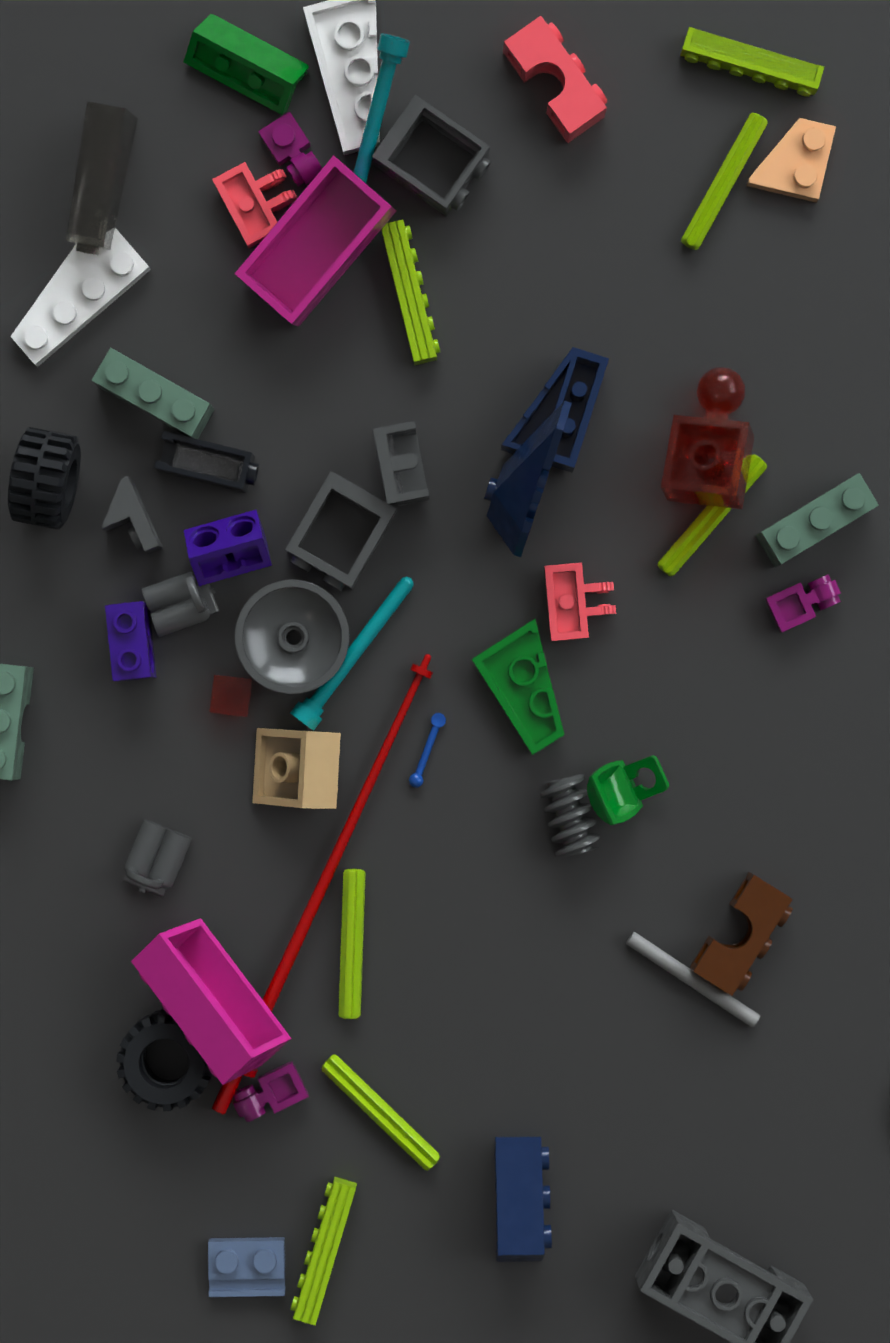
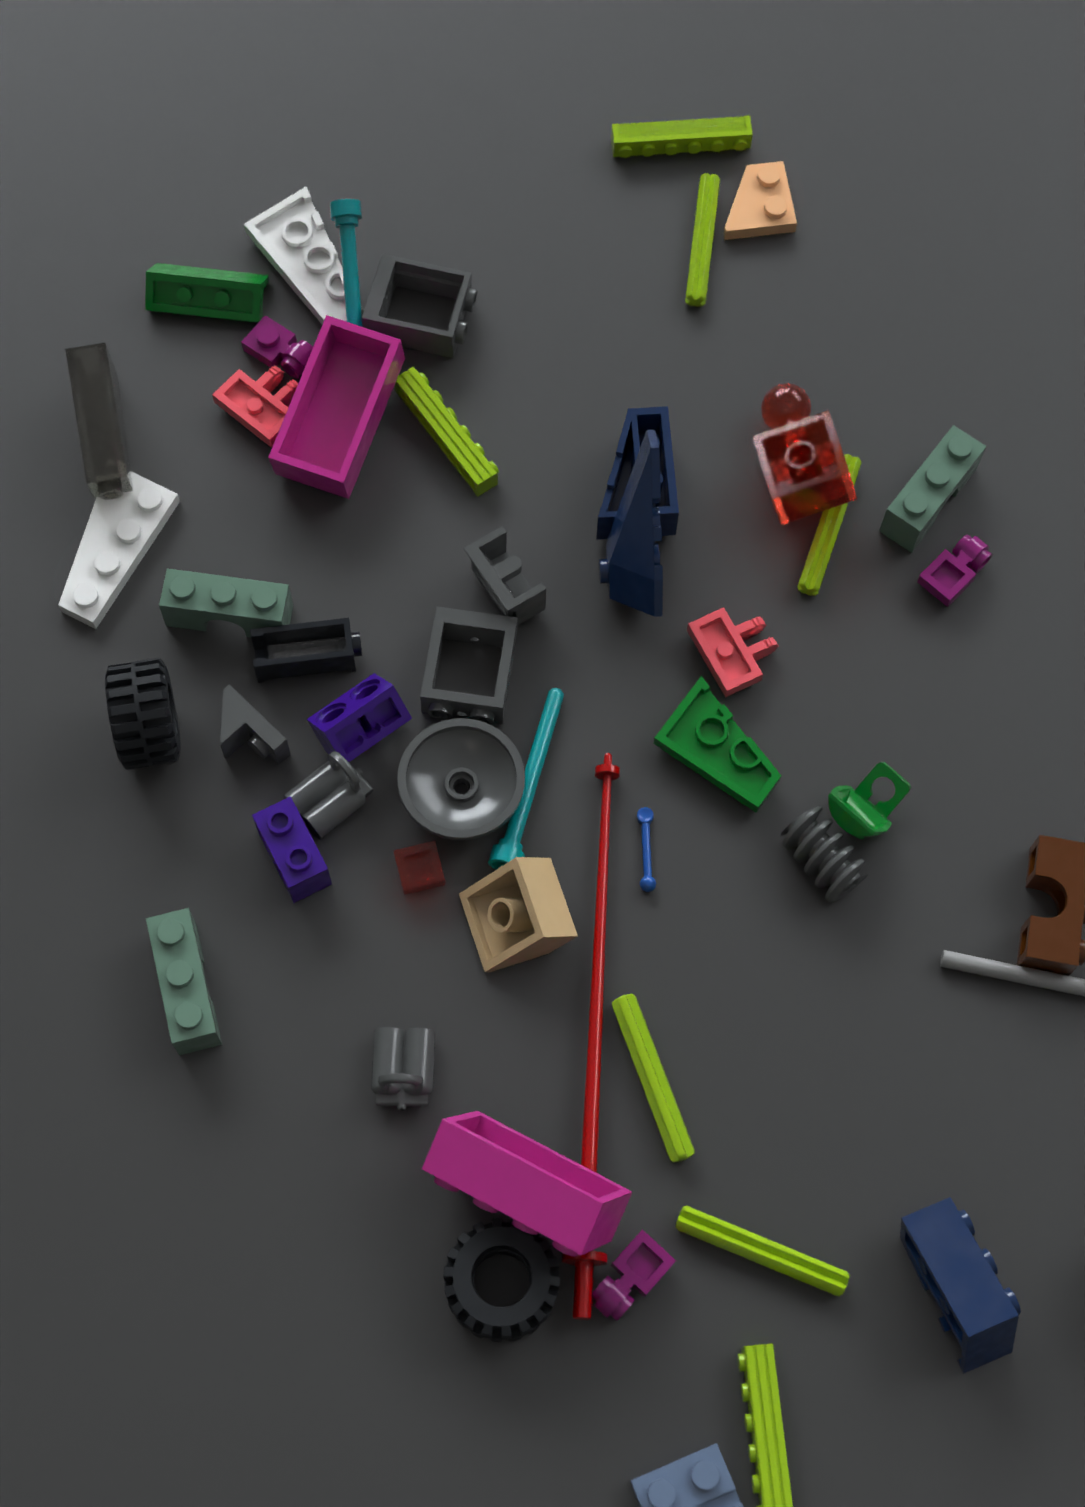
camera: 20 degrees left, 20 degrees down
(538, 51) = (485, 188): coral arch -> none

